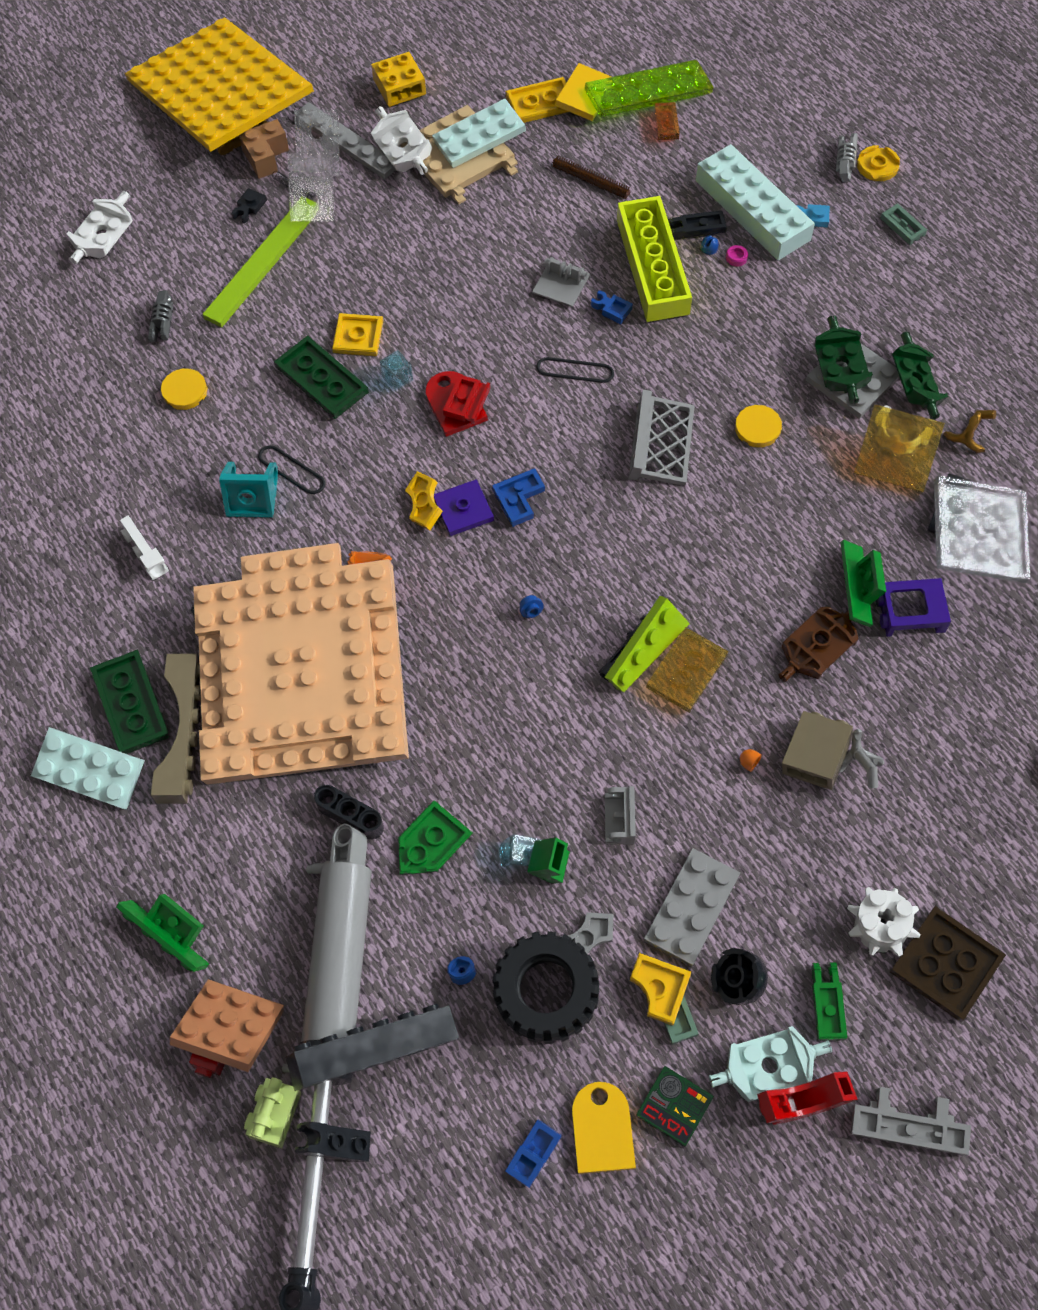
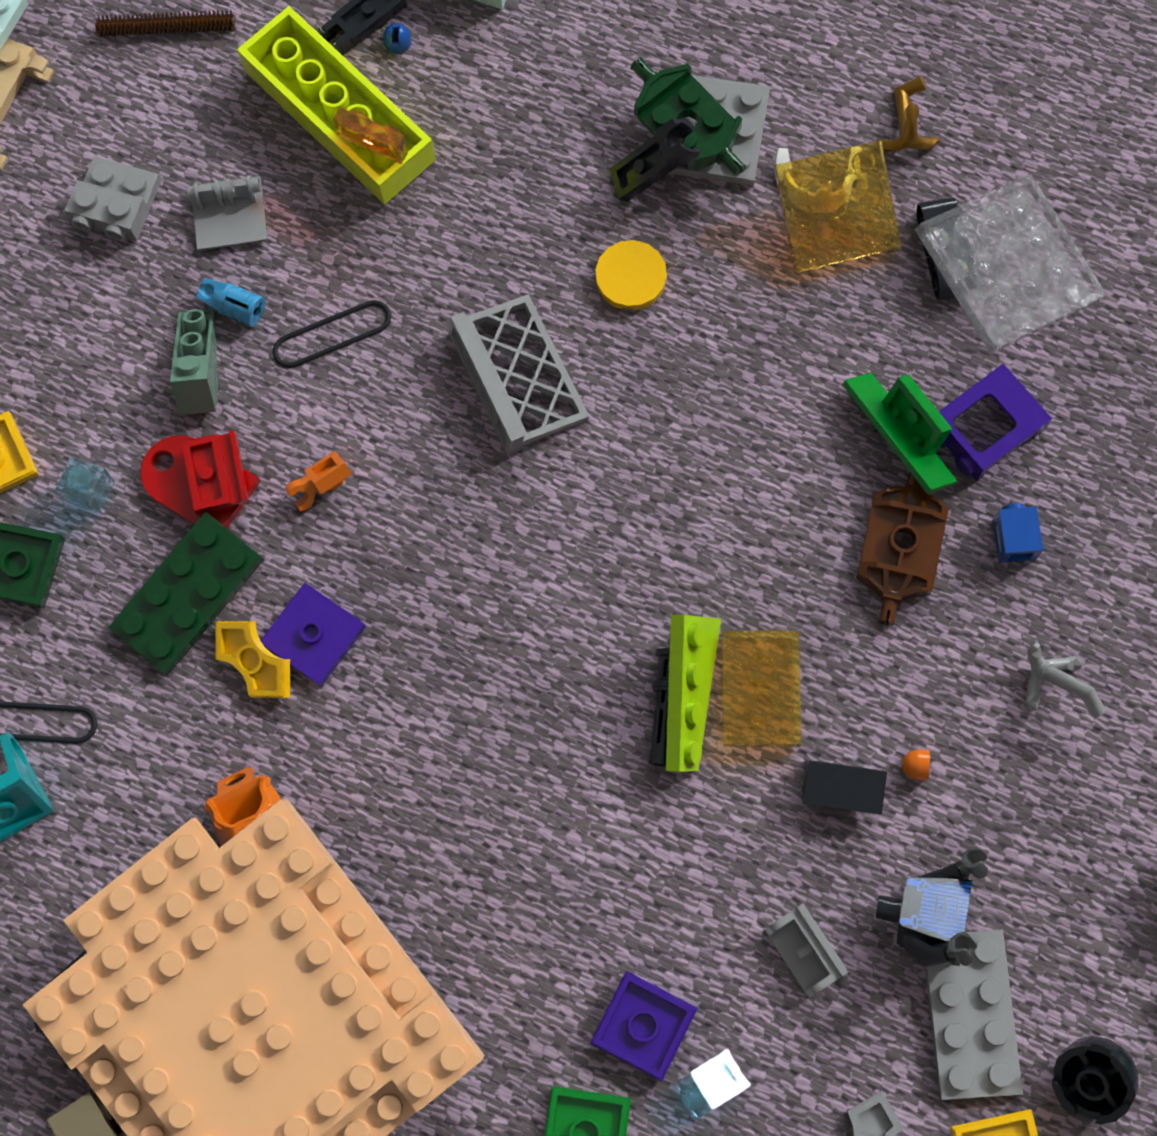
camera: 30 degrees left, 10 degrees up
(412, 450) = (186, 593): none -> dark green plate
(492, 344) = (195, 362): none -> sand green slope
(504, 800) = (643, 1026): none -> dark purple plate
(505, 245) = (113, 199): none -> light grey plate
(513, 495) = (368, 573): blue plate -> none
(524, 434) = (322, 476): none -> orange plate
(531, 606) = (500, 726): blue plate -> none
(533, 325) = (223, 296): none -> dark azure hinge
(549, 860) = (758, 1077): green piece -> none
(614, 308) = (328, 210): blue plate -> none
(659, 276) = (363, 132): none -> clear orange plate
(700, 744) = (844, 787): none -> black hinge
(707, 837) = (936, 911): none -> torso
(736, 255) = (443, 33): dark pink tile -> none
(809, 370) = (653, 159): none -> black plate
(817, 749) = (995, 698): dark tan brick -> none
(890, 673) = (1017, 533): none -> blue brick
(917, 376) = (780, 71): dark green plate -> none

